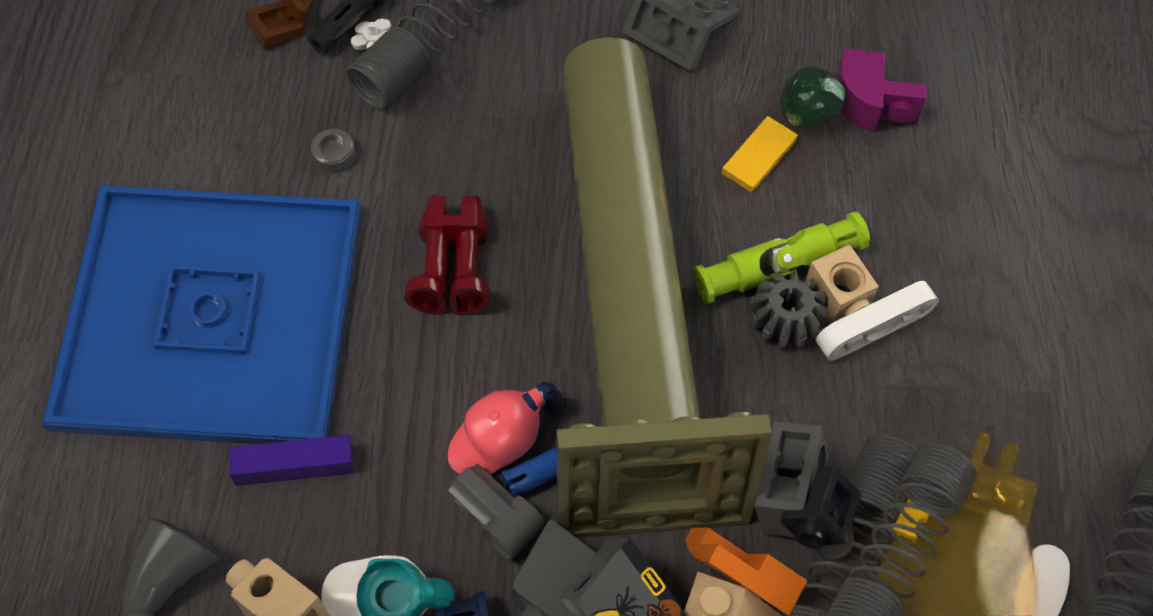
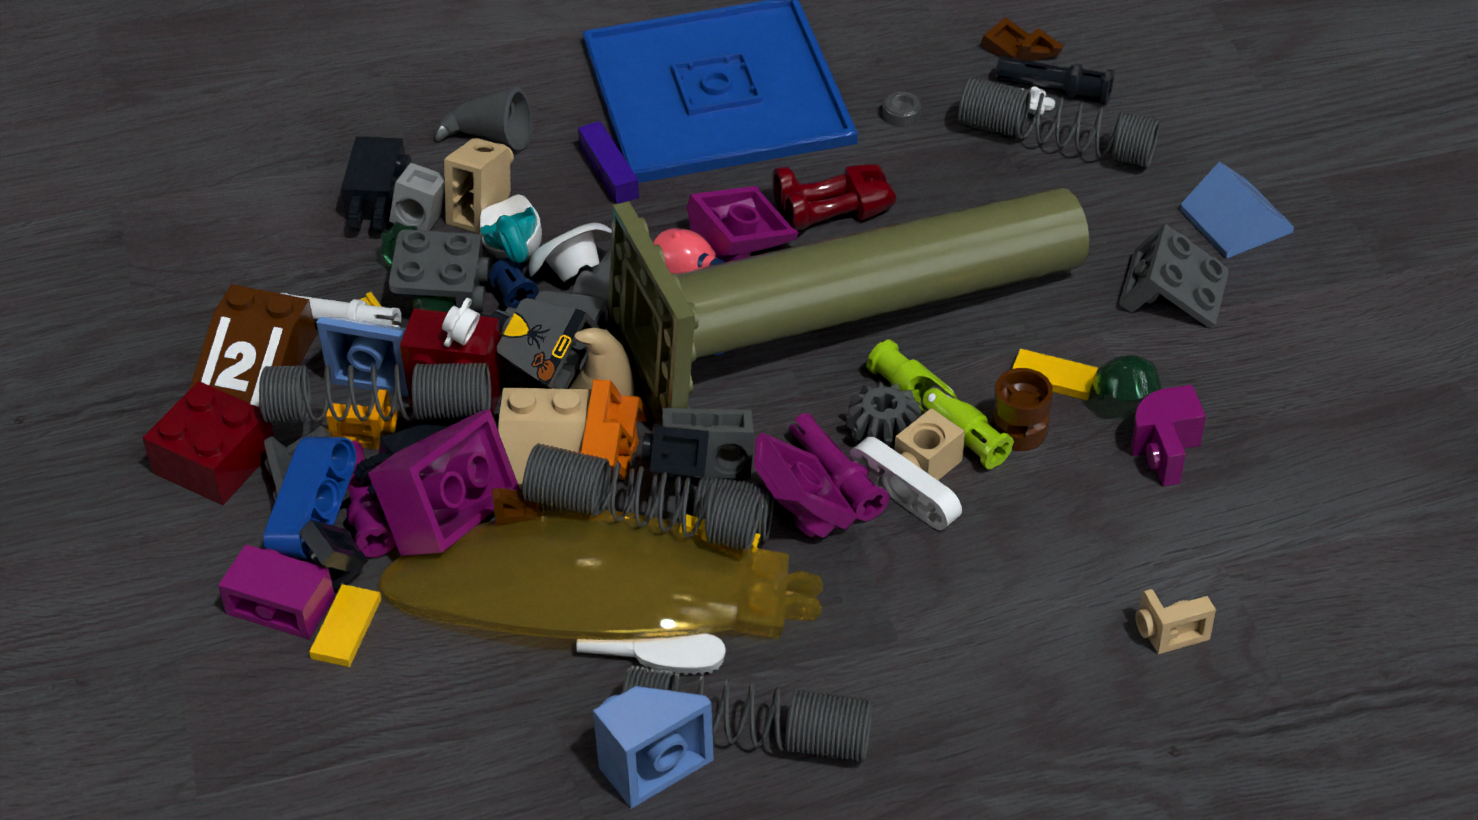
camera: 75 degrees right, 15 degrees down
(444, 536) = (571, 251): none -> white hat
(464, 354) = (737, 222): none -> magenta slope
(668, 555) = (604, 361): none -> tan hat
(822, 189) = (1022, 407): none -> reddish brown wheel
(856, 367) = (849, 476): none -> magenta pin
(884, 407) = (802, 486): none -> magenta slope
(1095, 170) = (1175, 625): none -> tan bracket

